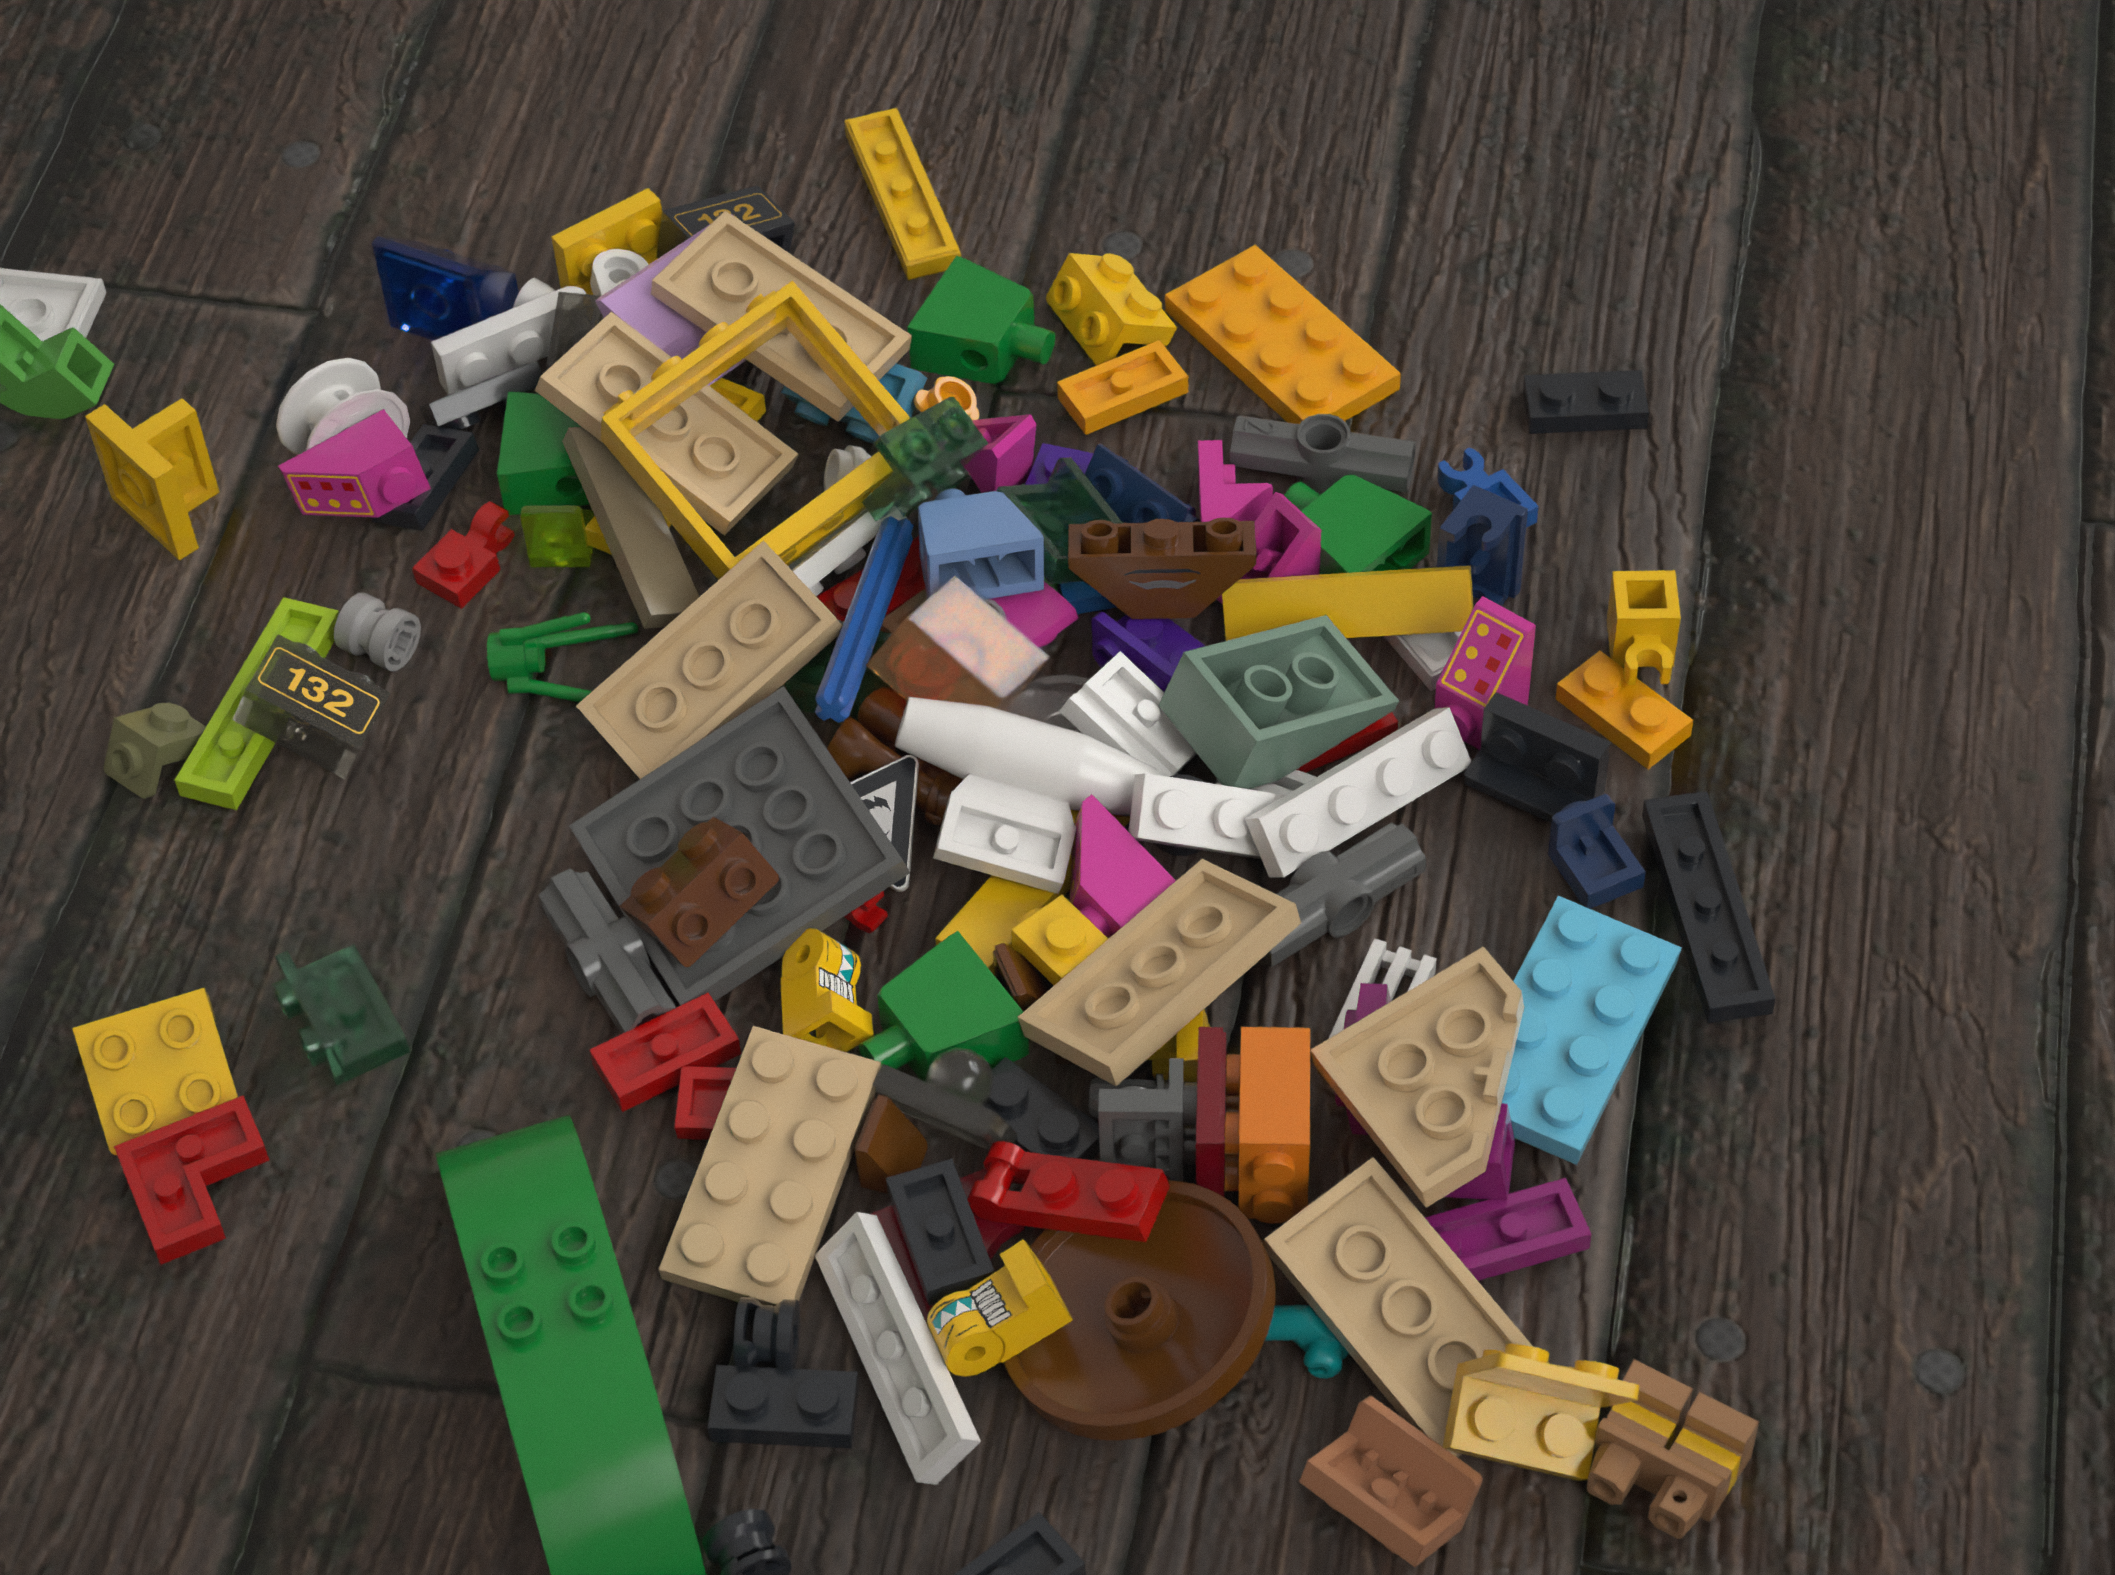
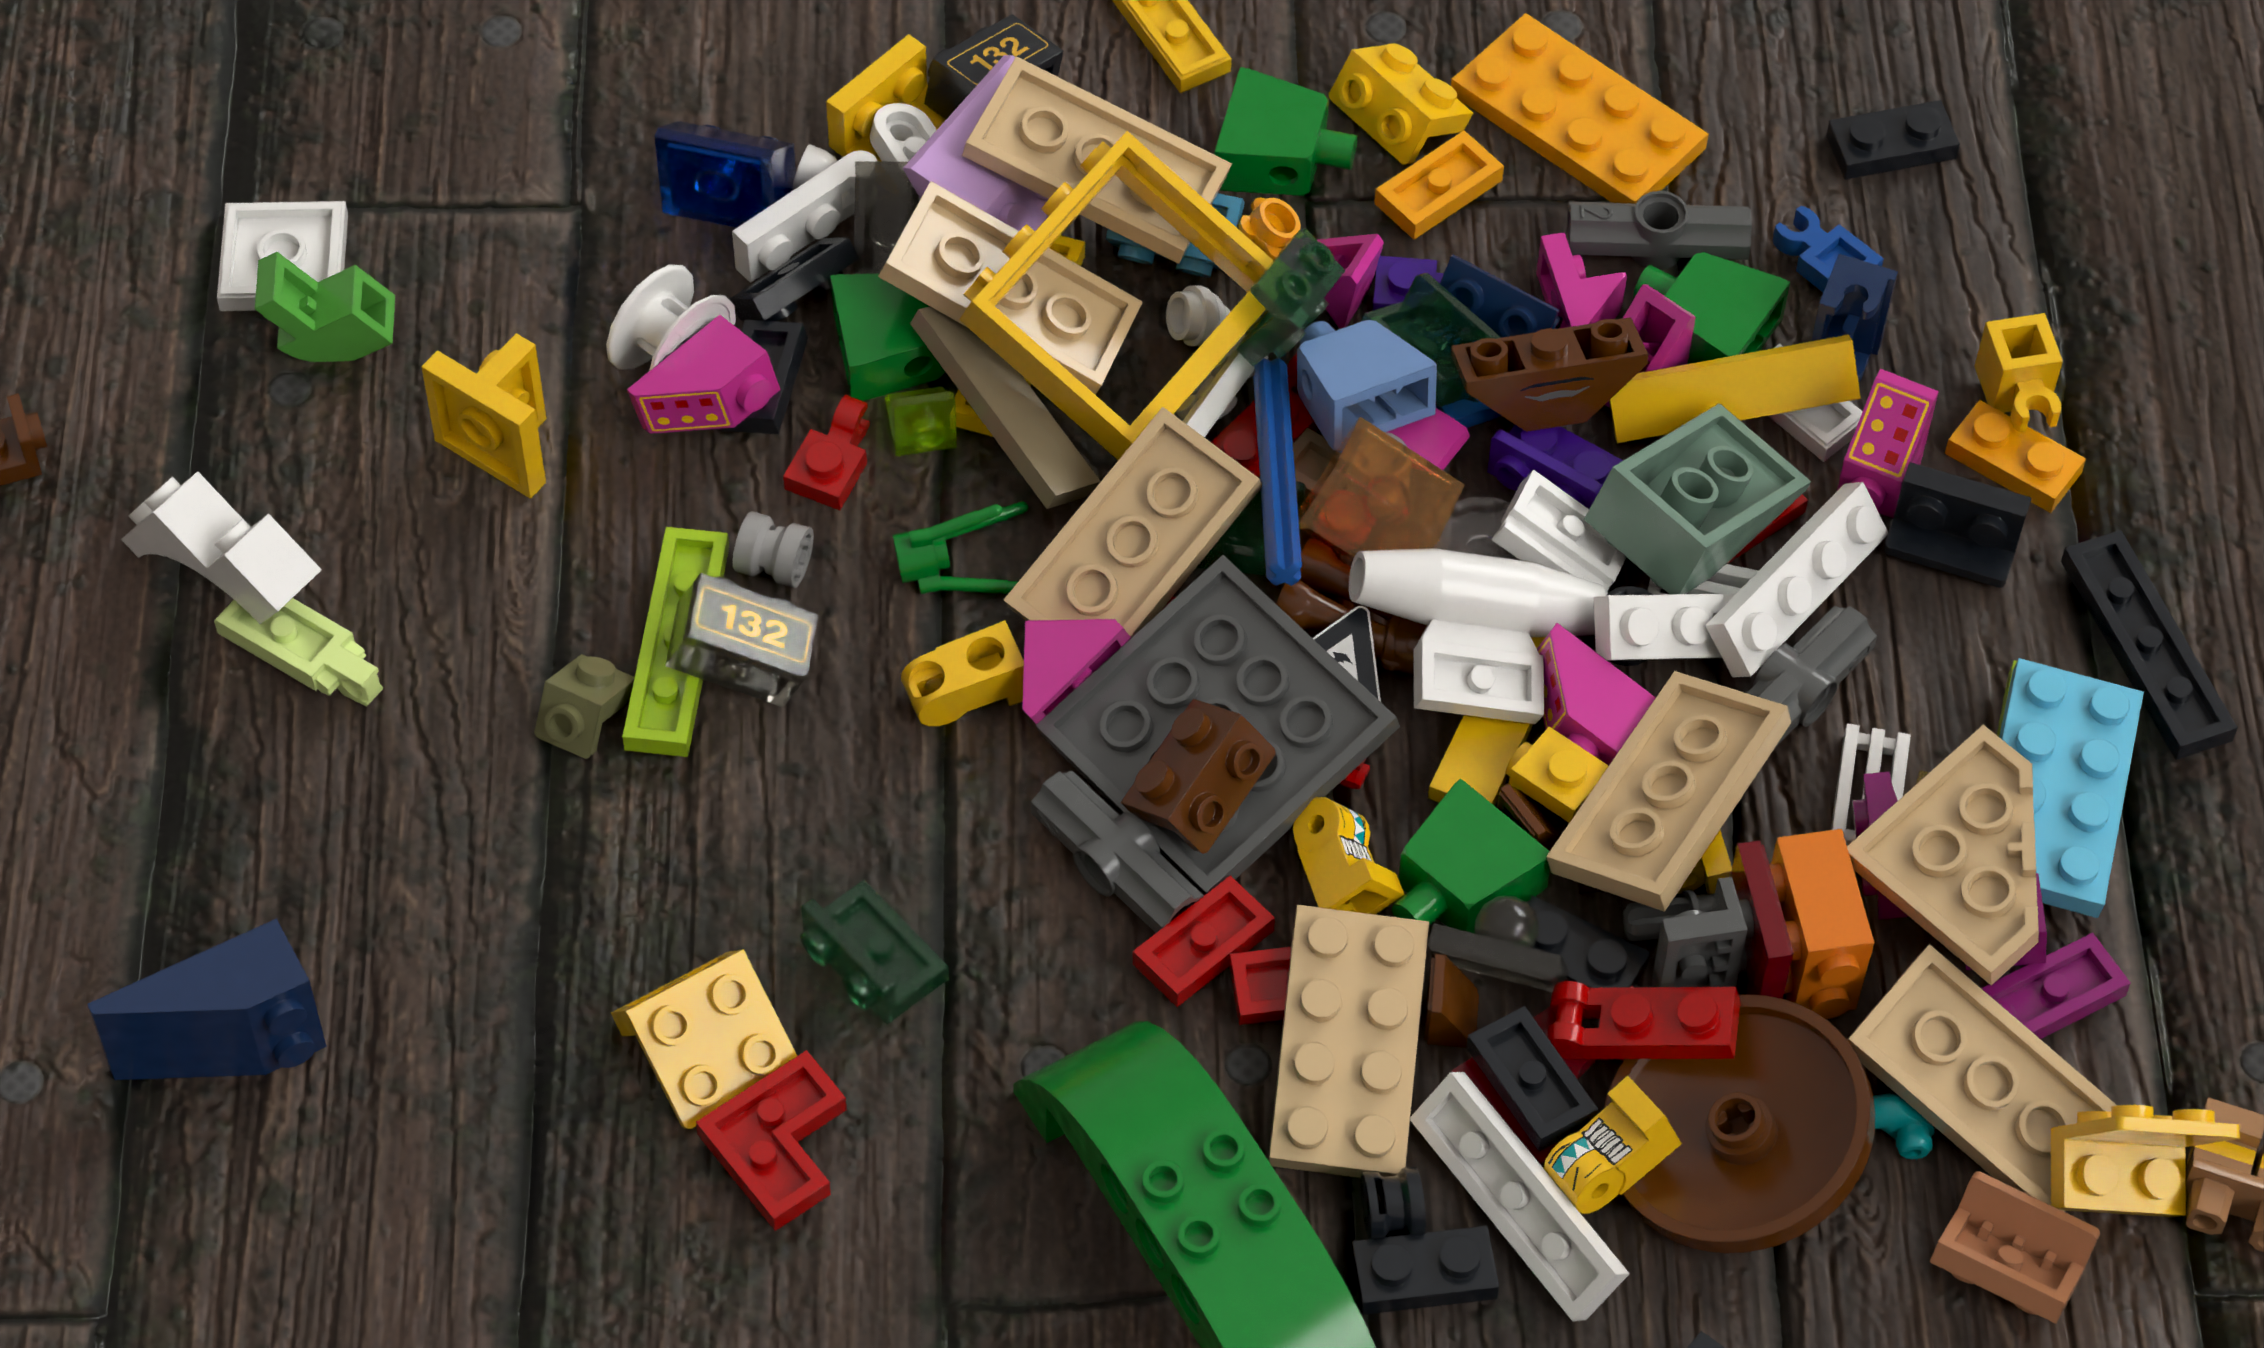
camera: 15 degrees left, 5 degrees up
(520, 771) = (965, 675): none -> yellow leg
(604, 763) = (1062, 657): none -> dark pink slope
(1593, 853) = (2030, 608): dark blue bracket -> none

